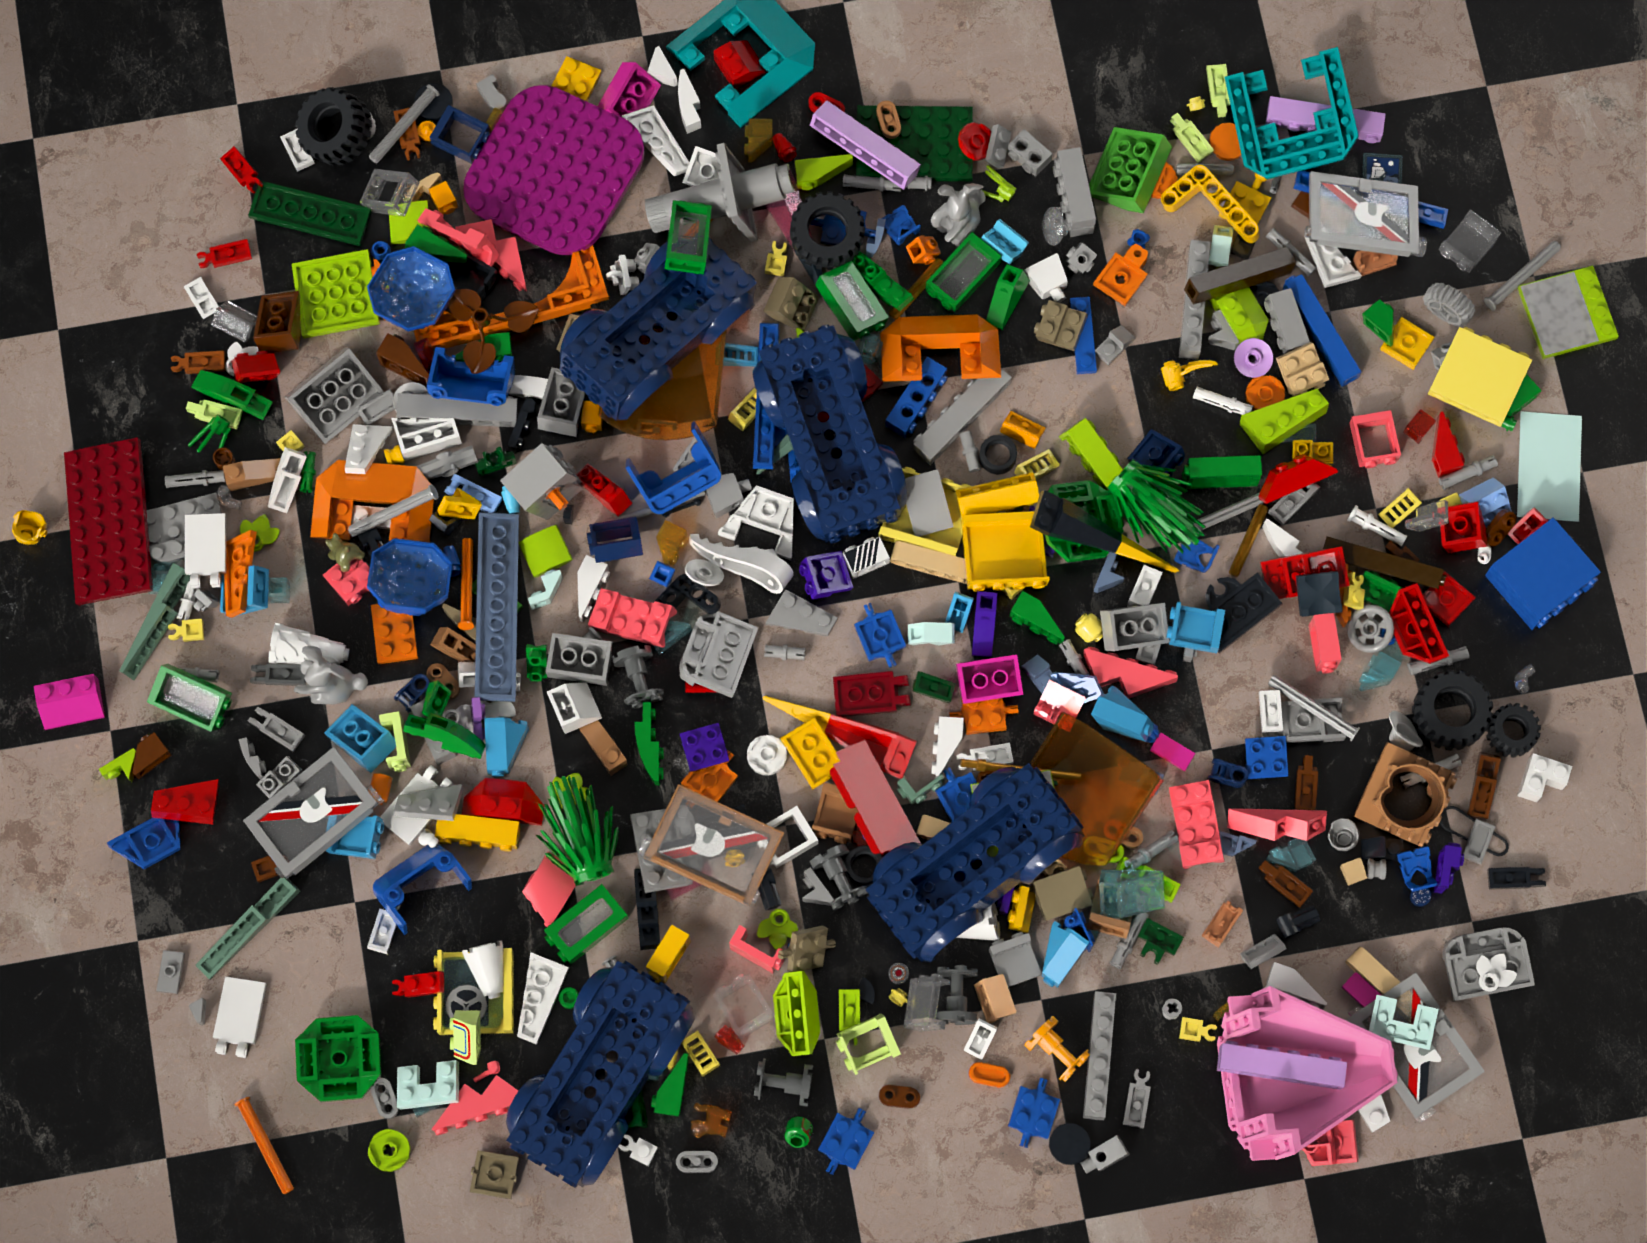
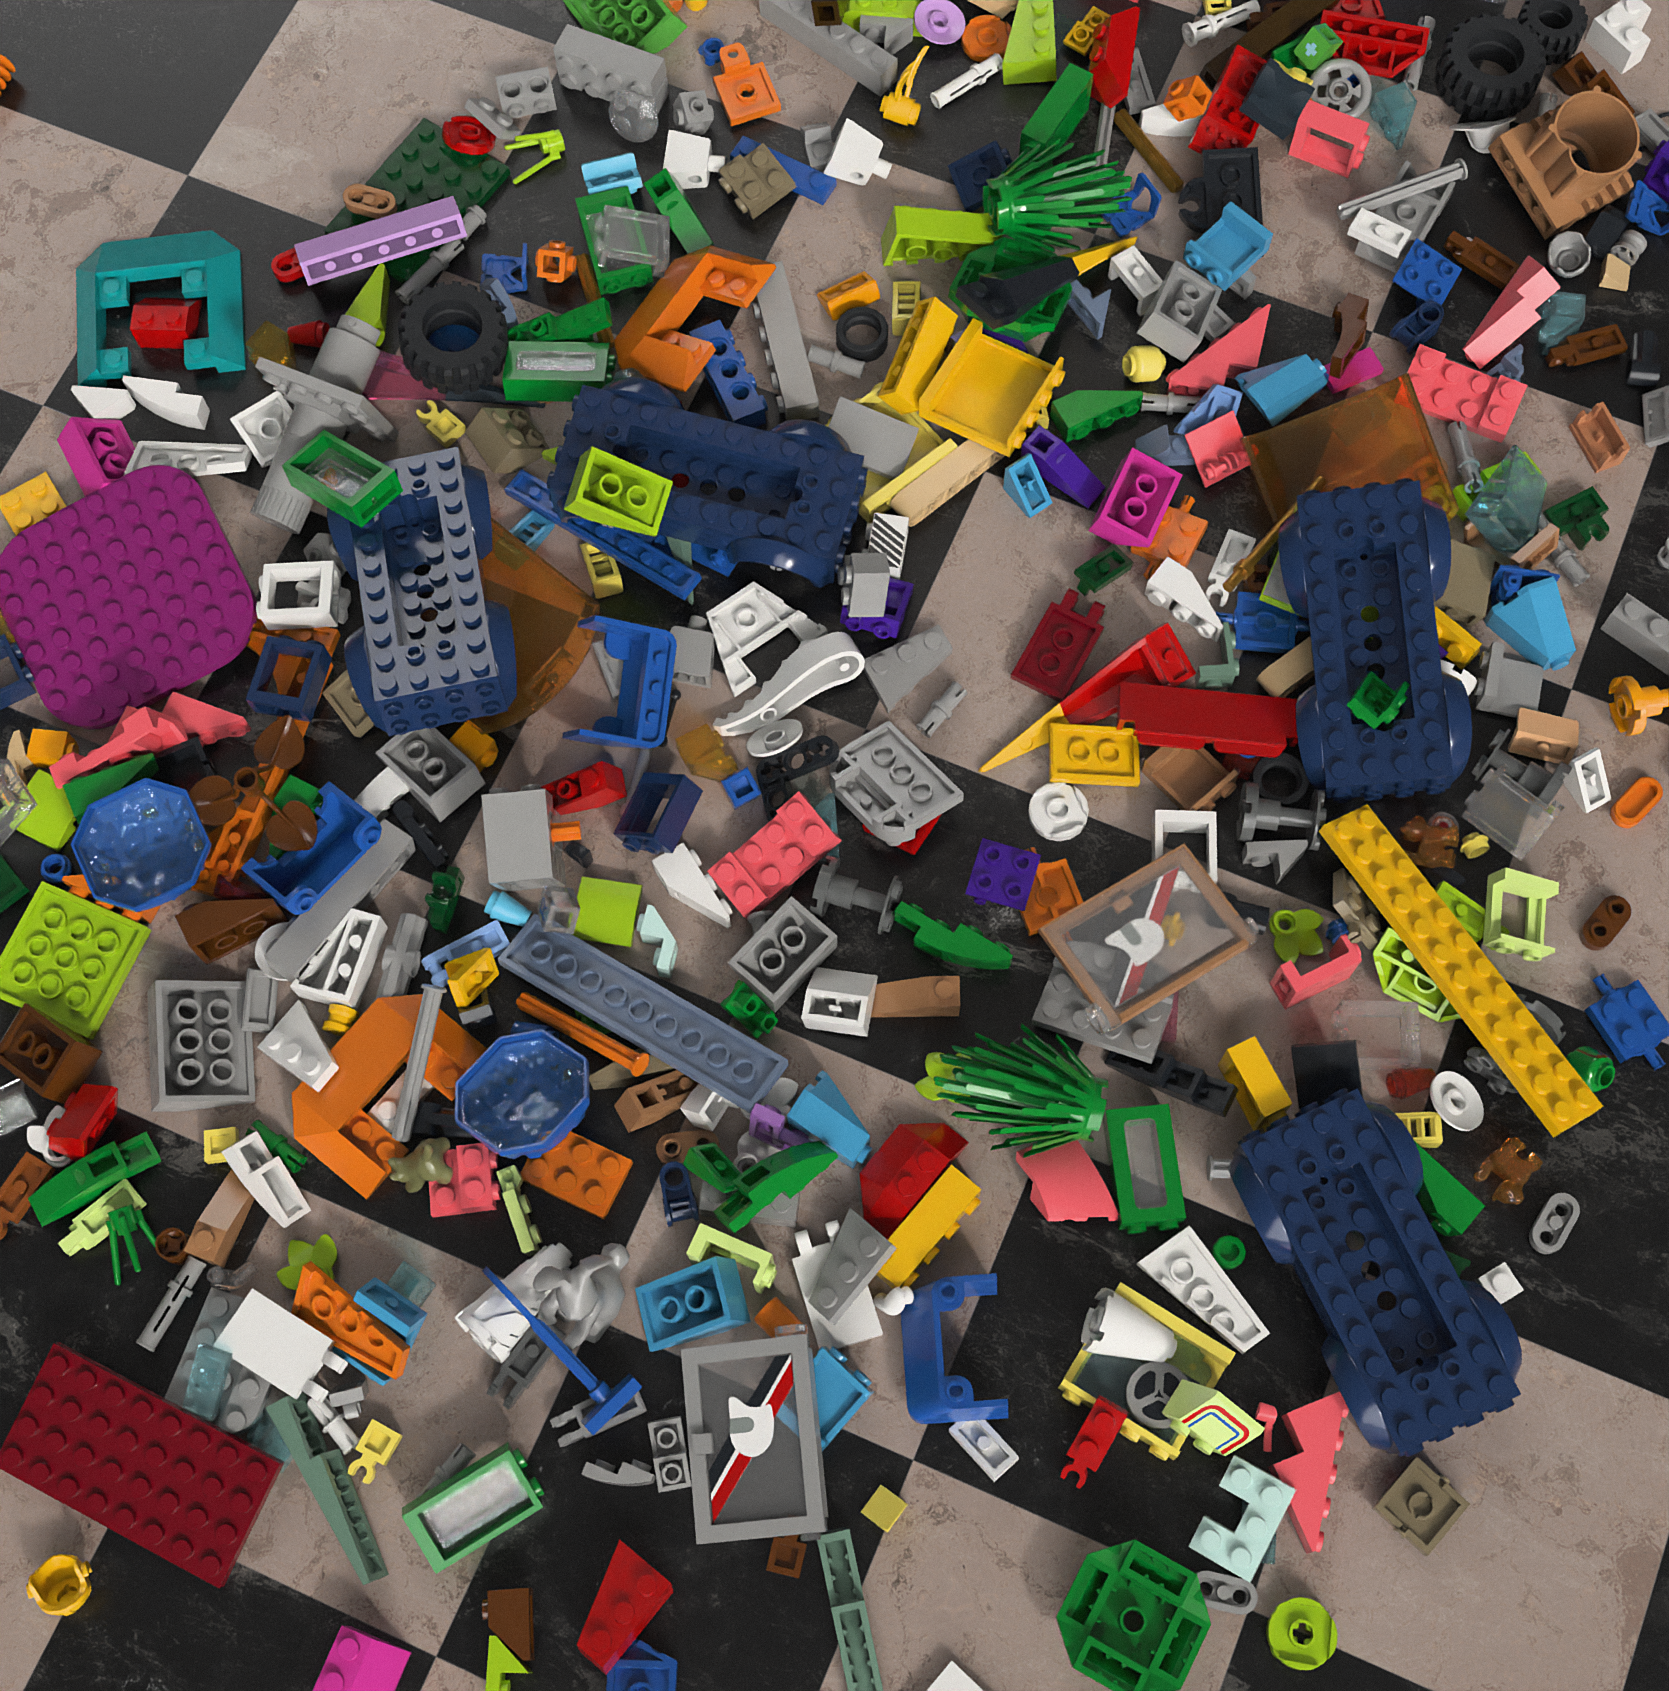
camera: 55 degrees left, 5 degrees down
(166, 524) = (207, 1380): none -> clear light blue plate
(282, 726) = (608, 1400): none -> blue piece
(319, 902) = (884, 1508): none -> light yellow slope
(352, 617) = (518, 1209): none -> yellowish green hinge
(526, 526) = (558, 909): none -> clear brick
(566, 306) = (282, 705): none -> dark blue window
(621, 278) = (296, 618): none -> white window
(701, 989) = (1325, 1069): none -> black tile
(740, 1072) = (1456, 1101): none -> white dish
(774, 392) = (617, 493): none -> lime slope
(803, 1022) = (1461, 970): none -> yellow plate
(824, 559) = (864, 584): none -> light grey brick
(880, 635) = (995, 591): blue plate -> none
(880, 971) = (1433, 840): none -> clear orange animal
(931, 633) = (1032, 532): light aqua slope -> none
(932, 882) = (1376, 700): none -> green bracket
(960, 213) = (544, 196): light grey animal -> none
(965, 283) = (633, 237): none -> clear panel
(1118, 372) = (856, 155): none -> white torso
(1205, 730) = (1351, 325): none -> reddish brown slope
(1286, 540) = (1187, 98): none -> orange brick
(1386, 595) = (1317, 46): none -> bright green brick

